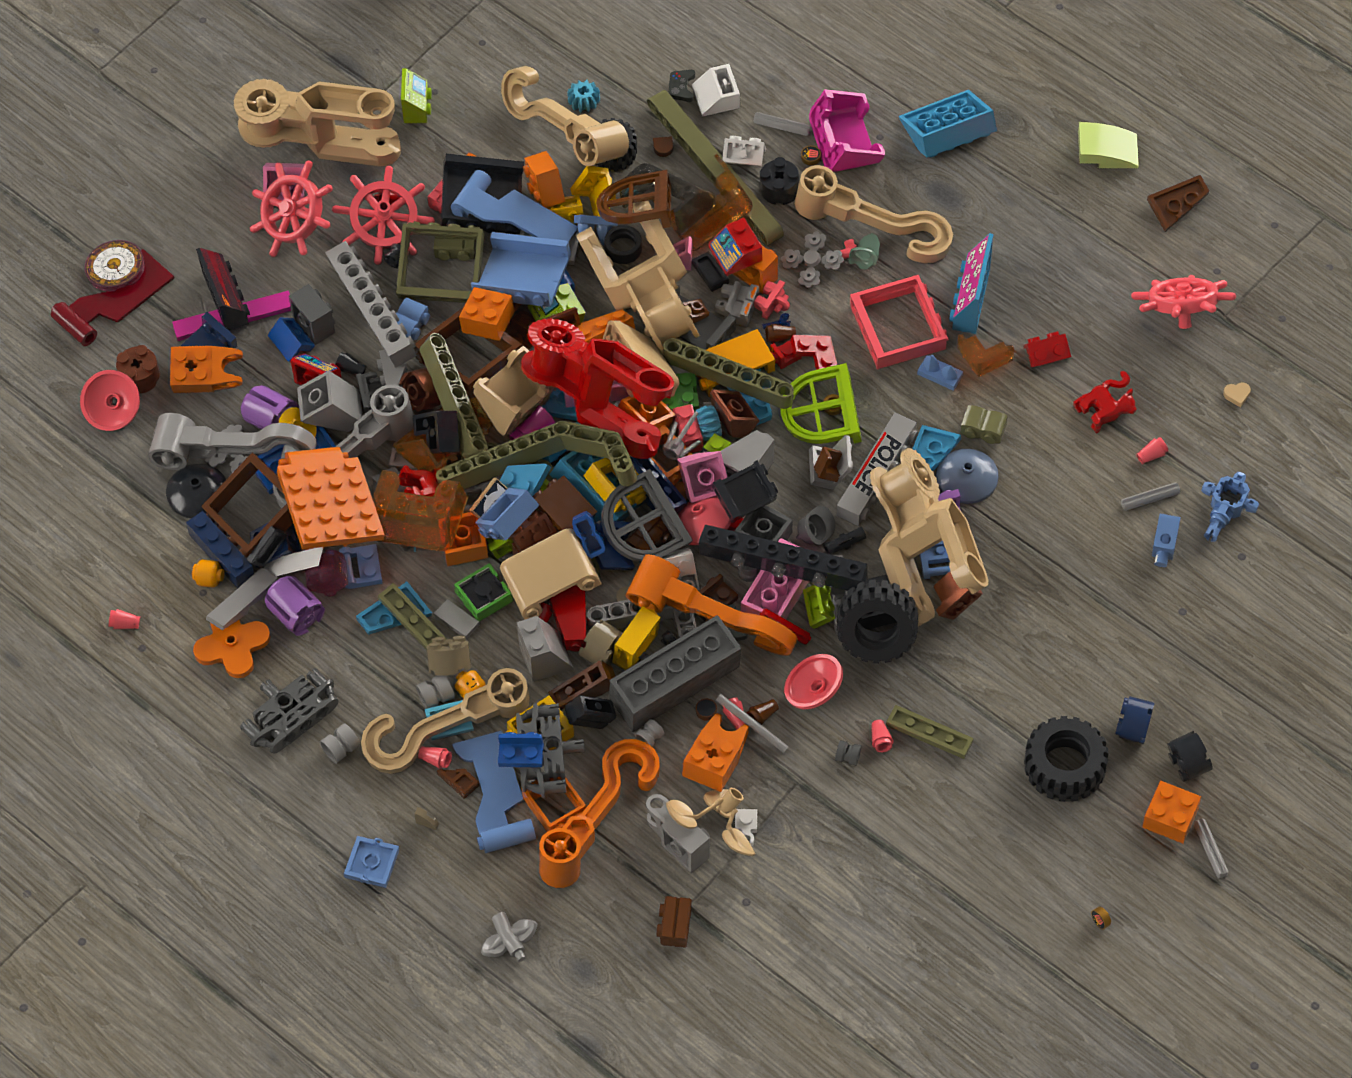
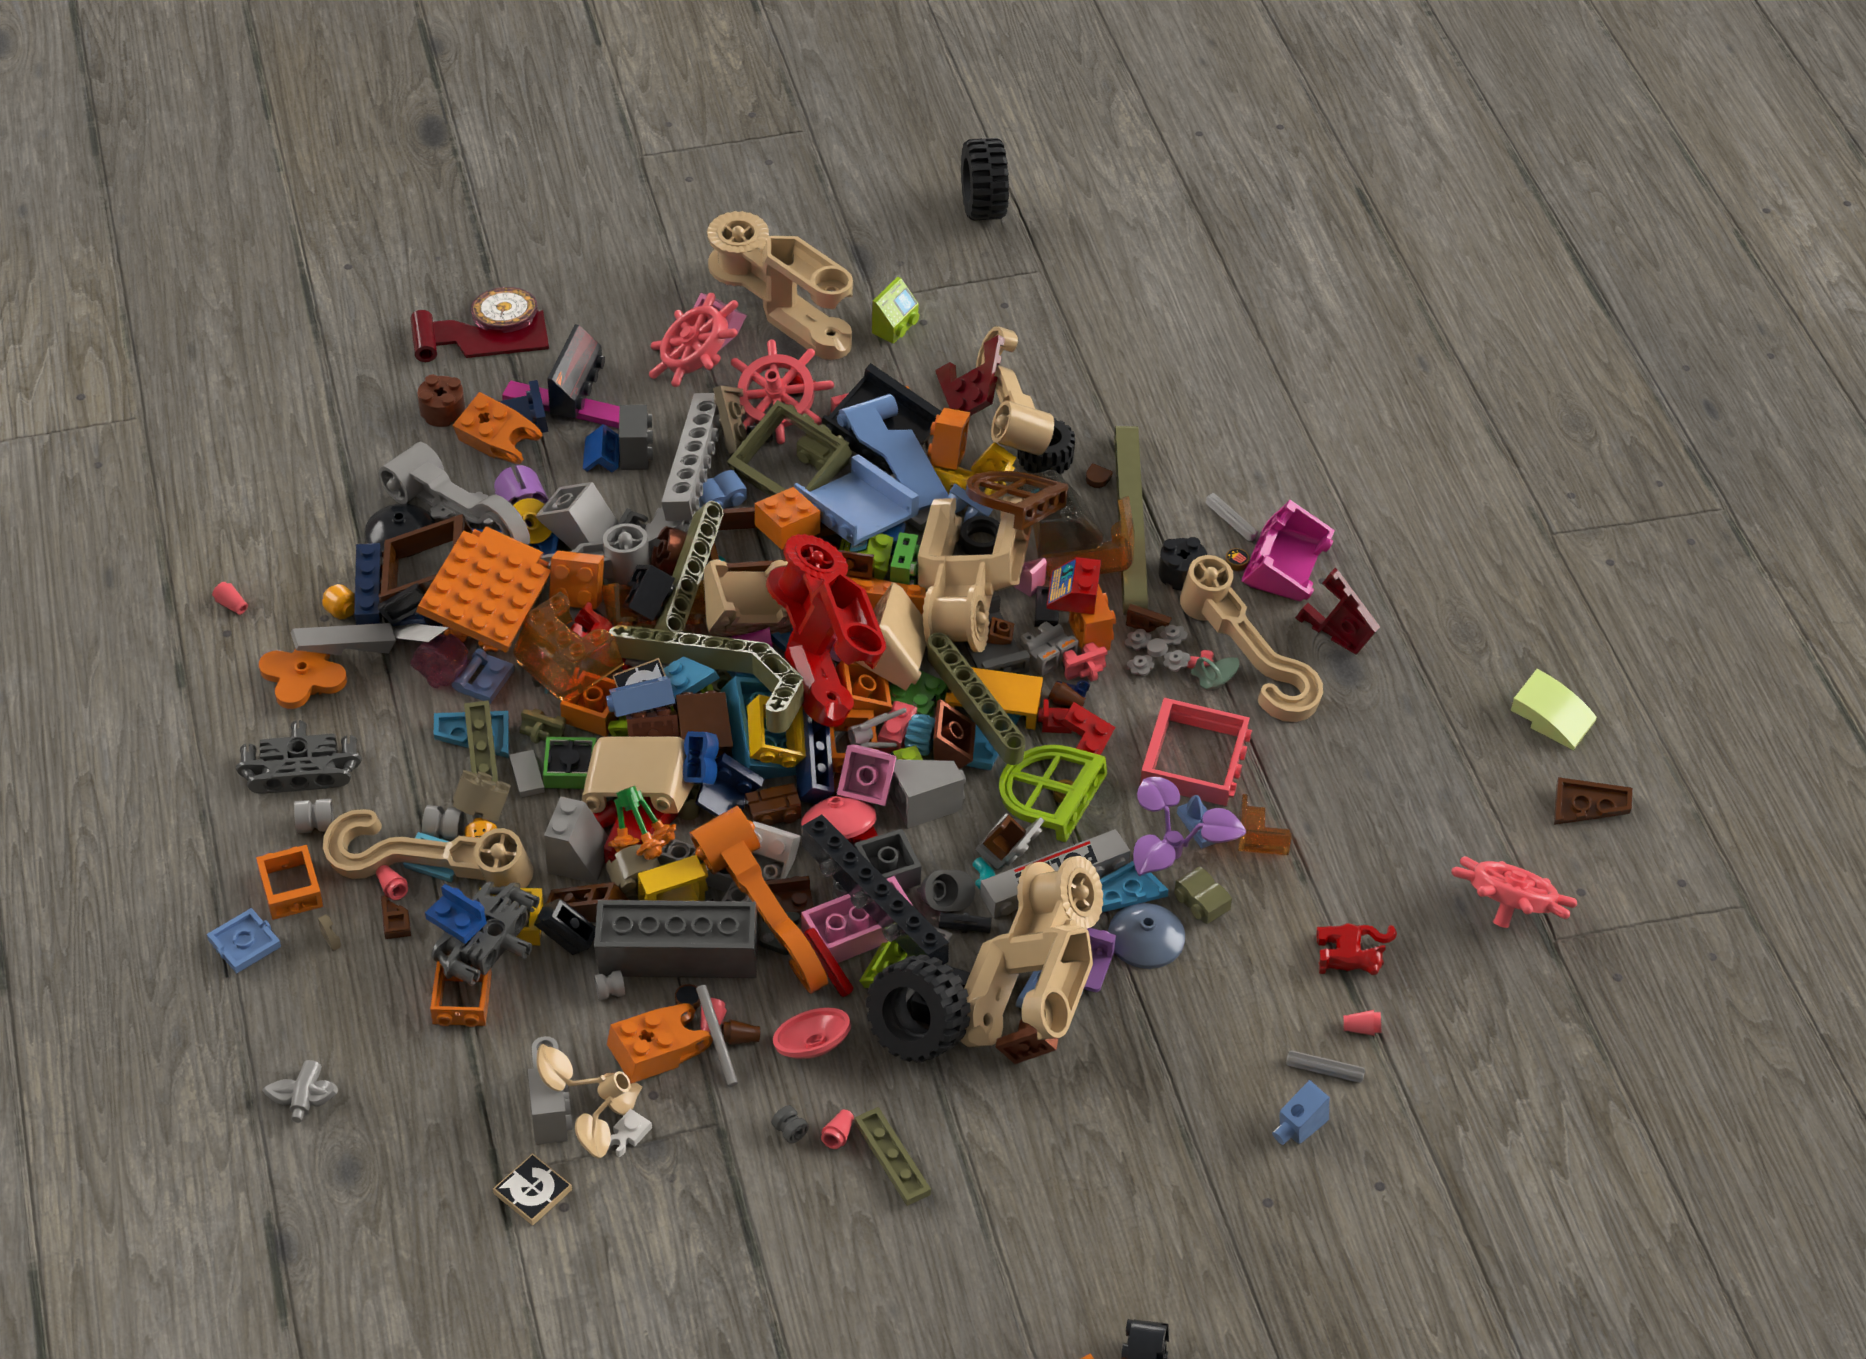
camera: 30 degrees right, 10 degrees down
(98, 396) = (390, 410): coral dish -> none
(294, 604) = (385, 670): medium lavender cylinder -> none
(309, 367) = (587, 472): red slope -> none
(349, 364) = (632, 498): black cone -> none
(367, 251) = (730, 412): none -> dark tan wing
(376, 451) = (577, 577): none -> orange brick
(381, 812) = (283, 903): none -> orange window
(439, 578) = (540, 726): none -> olive hips
(499, 792) = (387, 980): medium blue door -> none
(528, 128) = (976, 388): none -> dark red wing
(564, 847) = (419, 1037): orange piece -> none
(583, 96) = (1057, 393): medium azure gear -> none
(591, 297) = (904, 561): none -> bright green piece
(599, 605) = (652, 845): none -> plant
(662, 508) = (797, 779): dark grey window -> none
(675, 921) = (472, 1178): reddish brown brick -> none
(678, 85) = (1158, 430): pearl dark grey piece -> none
(716, 91) = (1189, 454): white slope -> none
(717, 903) = (532, 1189): none -> tile
(743, 151) = (1166, 516): white bracket -> none
(745, 491) = (890, 809): black panel -> none
(788, 240) = (1145, 619): none -> reddish brown tile
(829, 496) = (983, 869): none -> teal arm
(931, 163) = (1348, 622): none -> dark red wing
(936, 413) = (1156, 855): none -> medium lavender plant
(949, 123) = (1405, 603): dark azure slope -> none
(972, 287) = (1298, 762): slope -> none
(1047, 350) = (1330, 862): red bracket -> none
(1059, 782) = (1009, 1300): black tyre -> none
(1136, 719) = (1116, 1275): dark blue brick -> none
(1222, 510) = (1392, 1126): medium blue piece -> none
(1237, 393) = (1506, 1021): tan tile -> none

